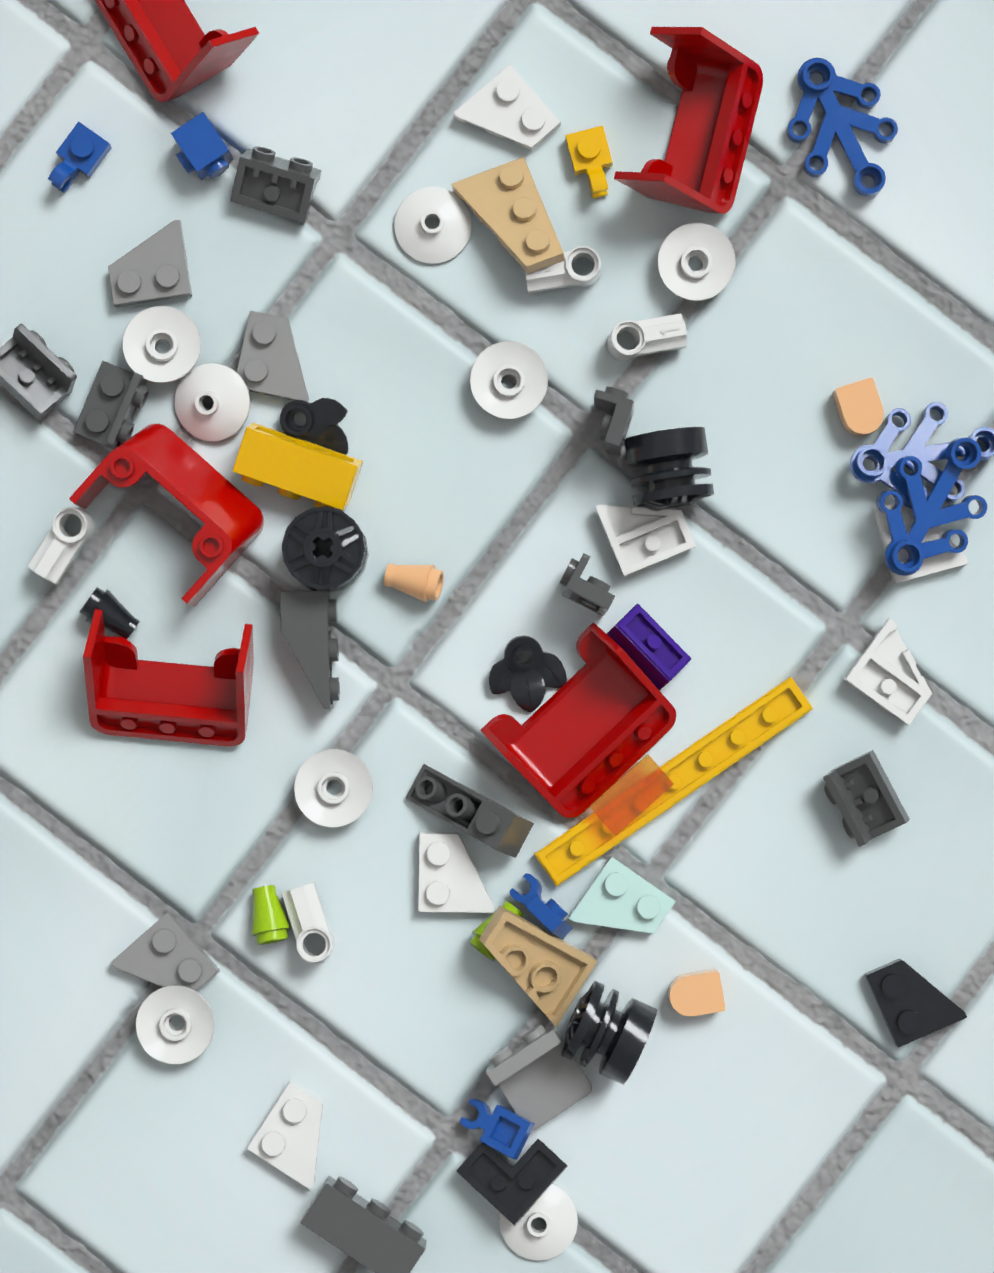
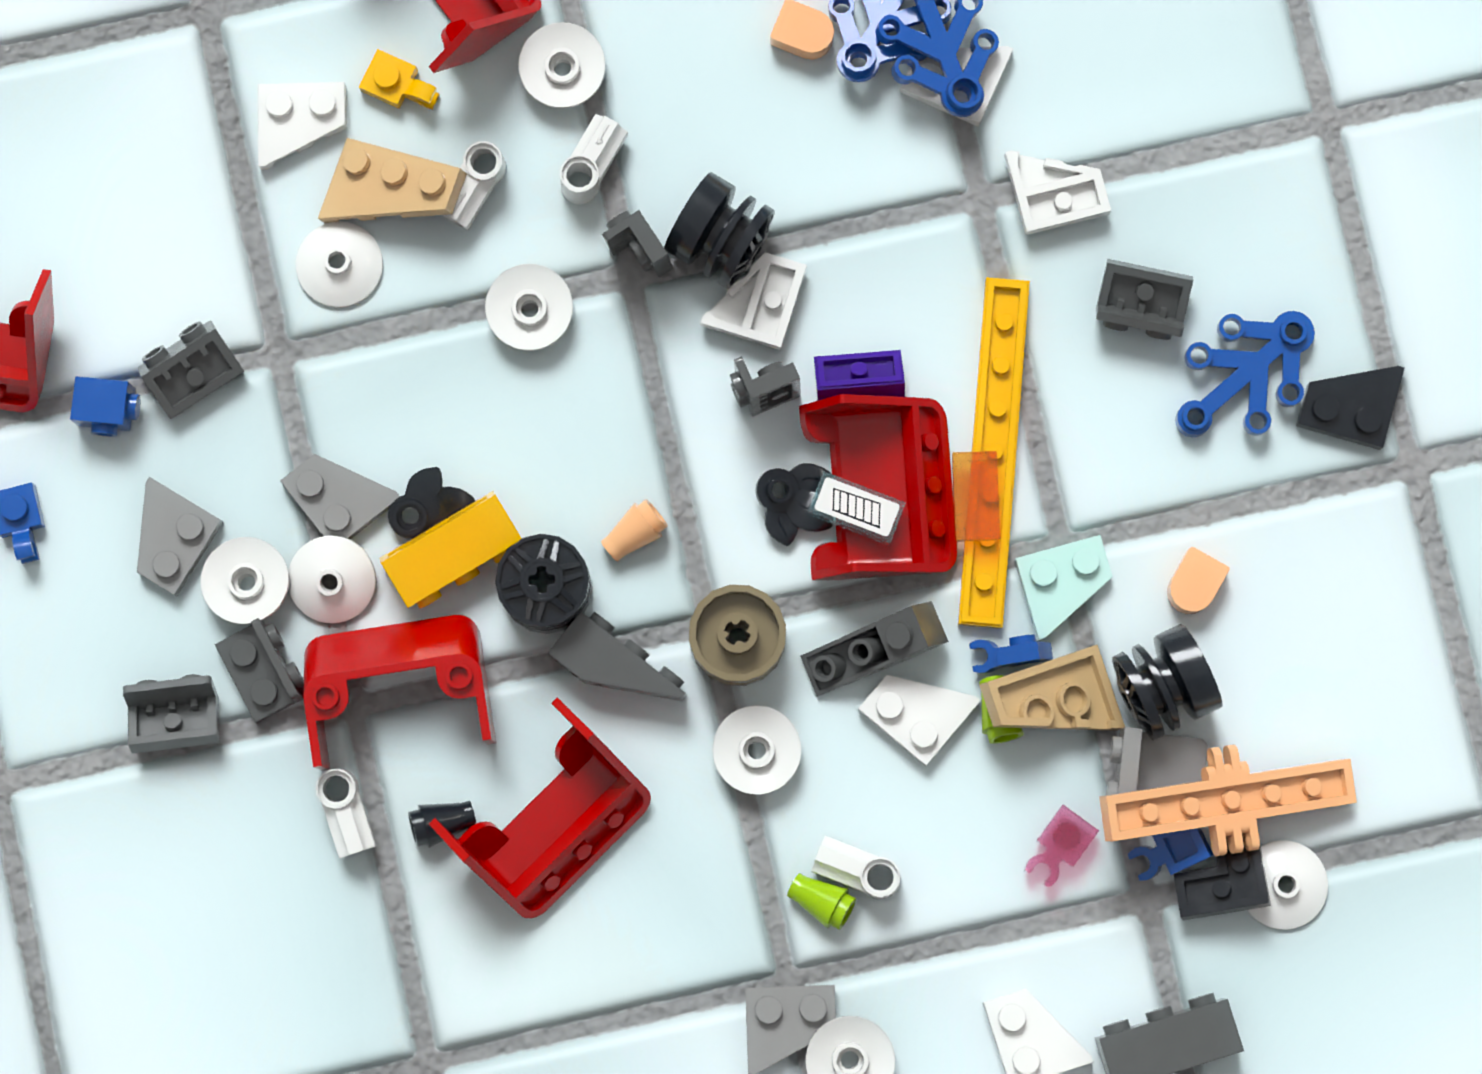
camera: 55 degrees left, 5 degrees down
(376, 707) = (742, 609): none -> dark tan wheel
(445, 1047) = (1064, 840): none -> clear pink plate
(555, 719) = (856, 508): none -> tile
(560, 1140) = (1227, 800): none -> light nougat hinge
(877, 911) = (1251, 369): none -> blue plant

